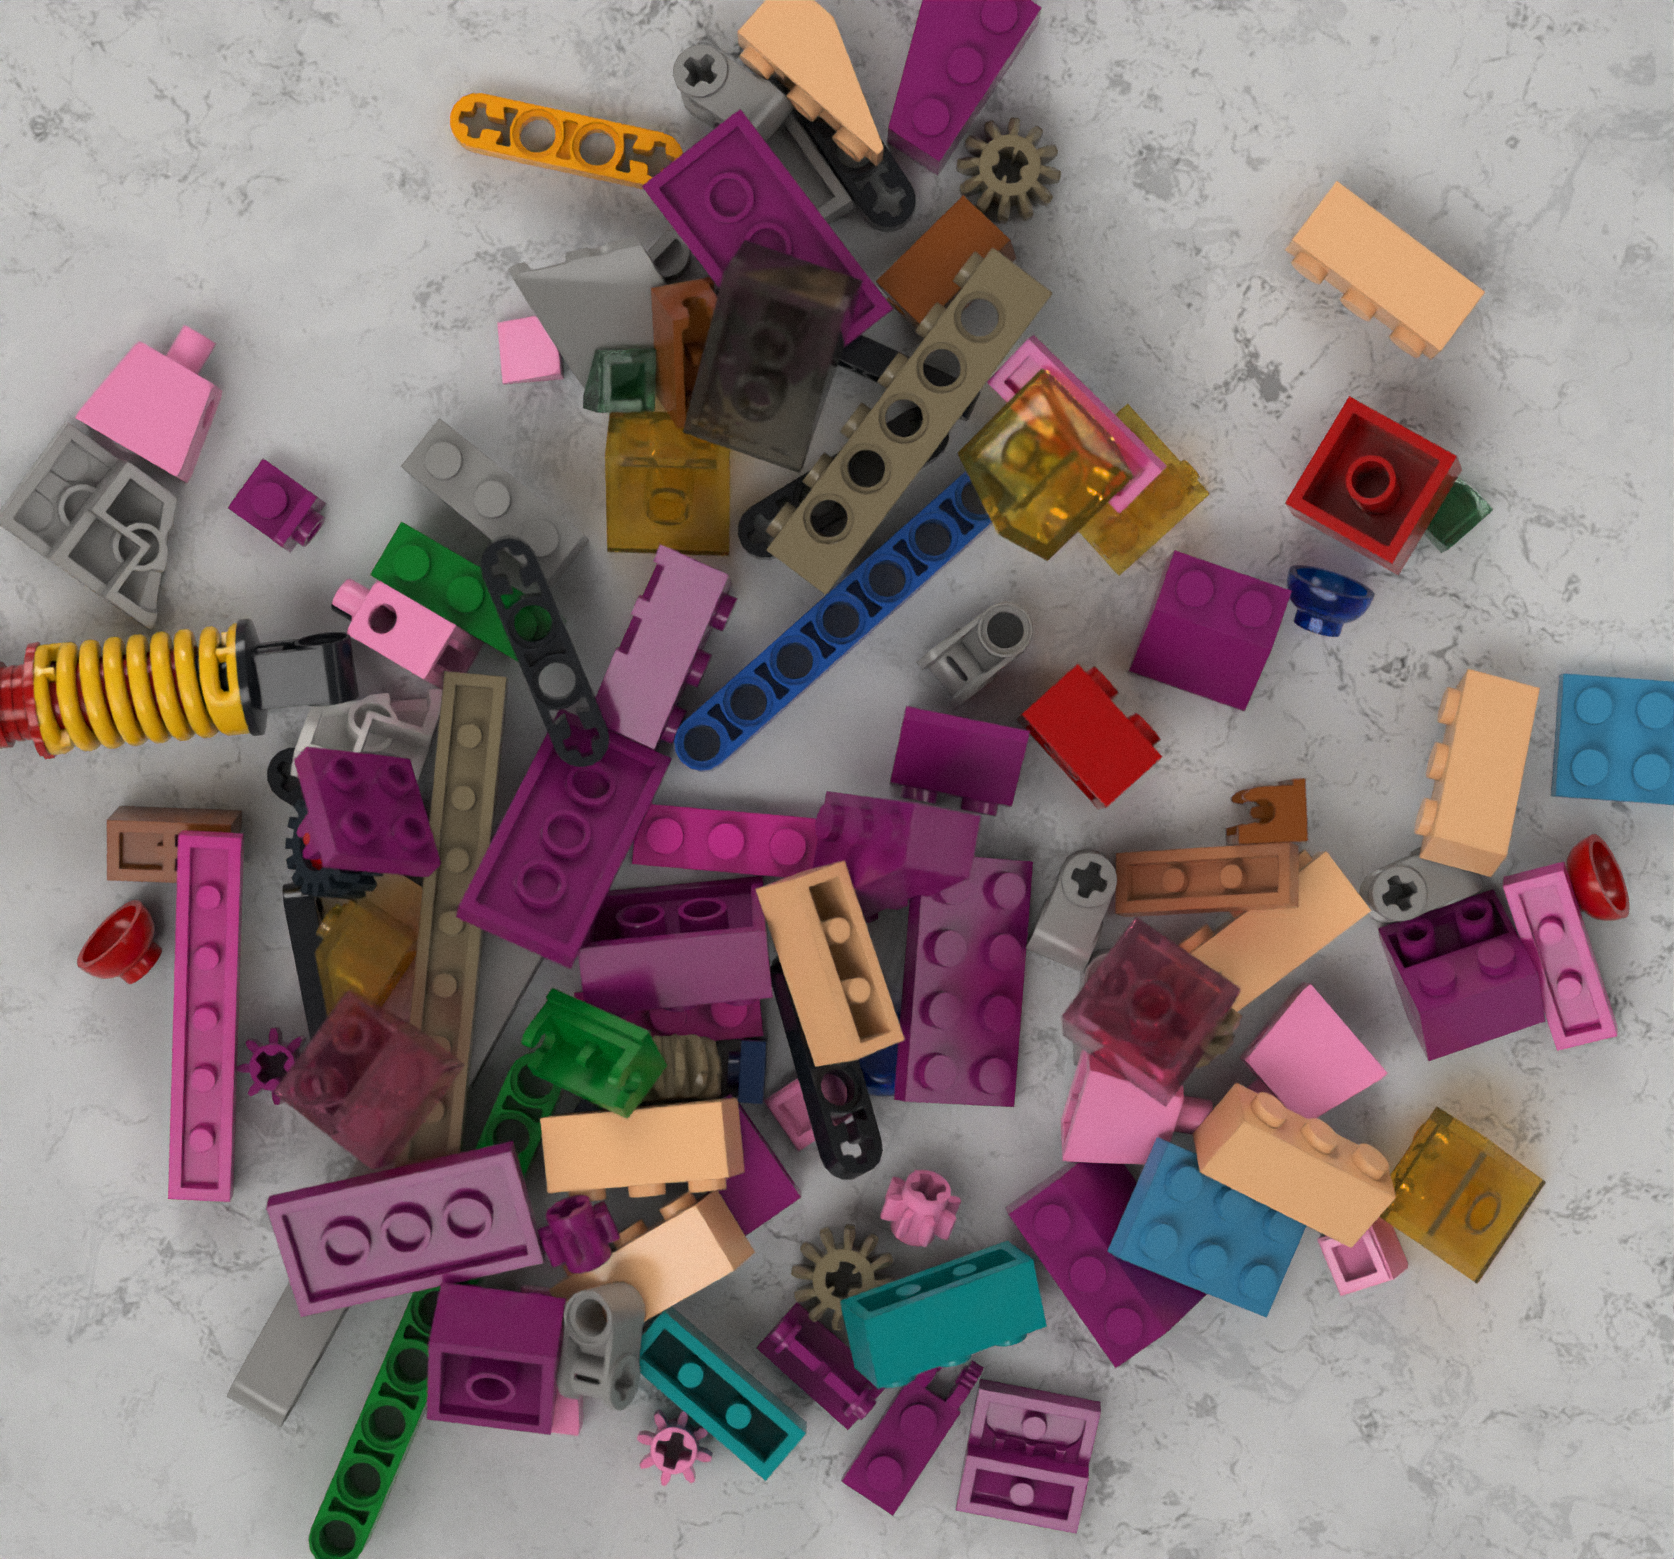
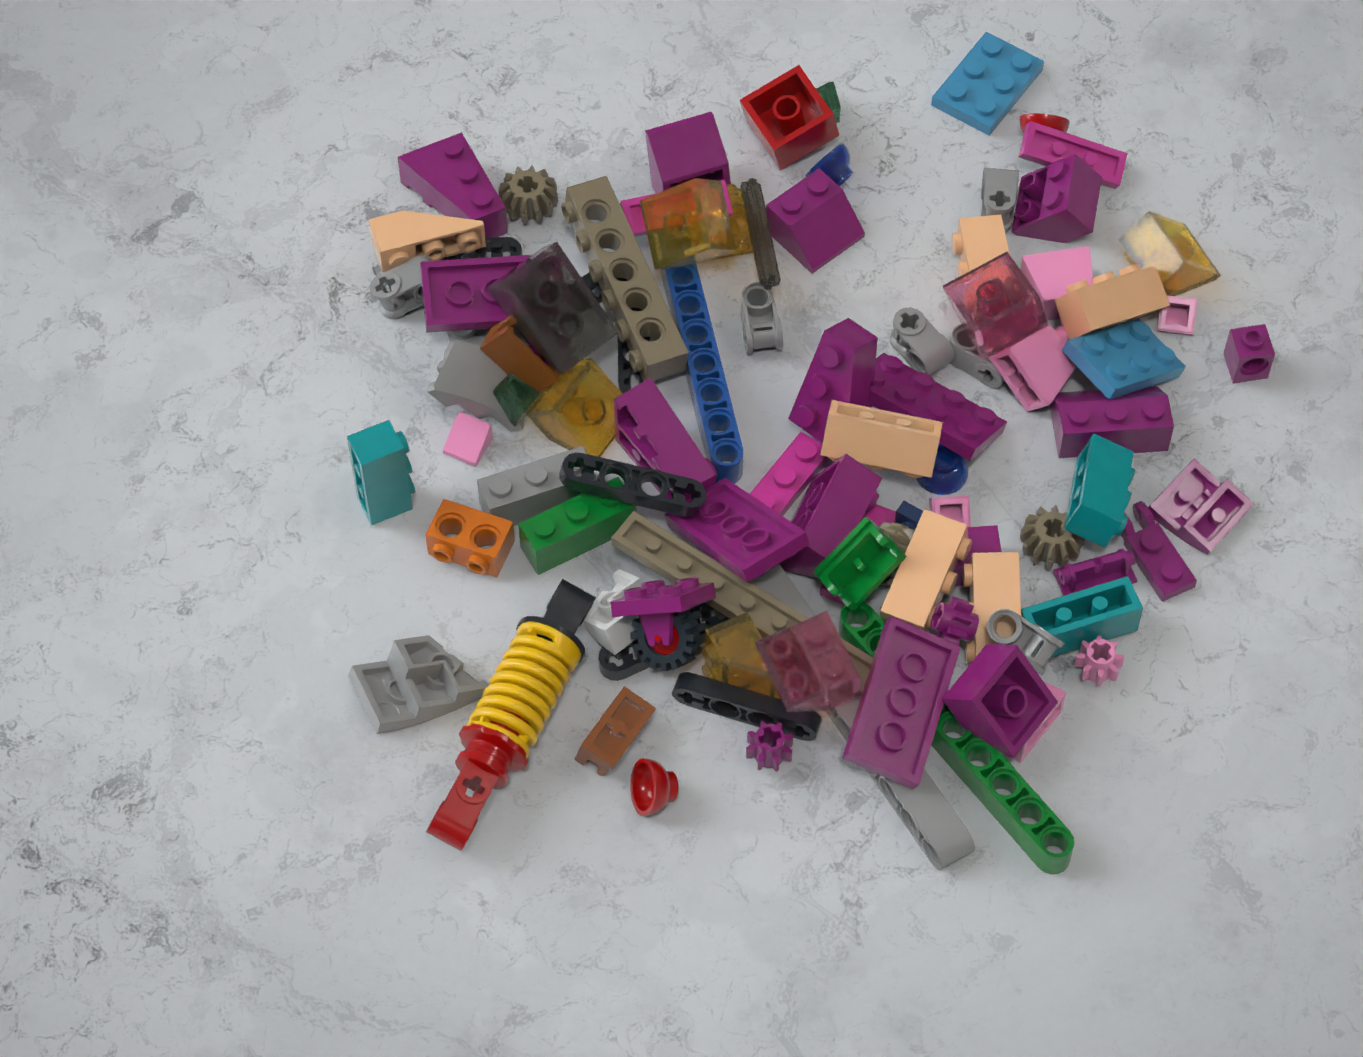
camera: 60 degrees left, 30 degrees down
(158, 403) = (373, 618): bright pink torso -> none
(205, 1015) = (721, 757): dark pink plate -> none
(279, 507) = (468, 595): magenta bracket -> none
(359, 278) = (381, 471): none -> teal brick
(377, 453) = (473, 531): none -> orange brick
(419, 639) = (578, 555): bright pink torso -> none
(569, 135) = (377, 375): light orange beam -> none
(821, 1112) = (943, 486): black beam -> none
(920, 1208) = (1036, 483): bright pink gear -> none
(933, 261) = (550, 227): dark orange hinge -> none
(958, 760) = (797, 341): magenta slope -> none
(1091, 735) = (836, 286): red brick -> none
(1119, 569) = (760, 234): none -> clear smoke axle
(1193, 381) = (686, 152): none -> magenta slope
(1207, 880) = (945, 263): nougat plate -> none
(1280, 811) = (928, 230): dark orange hinge -> none
(1336, 1403) = (1249, 353): none -> magenta brick
(1383, 272) = (686, 73): light nougat brick -> none
(1476, 772) = (960, 141): light nougat brick -> none

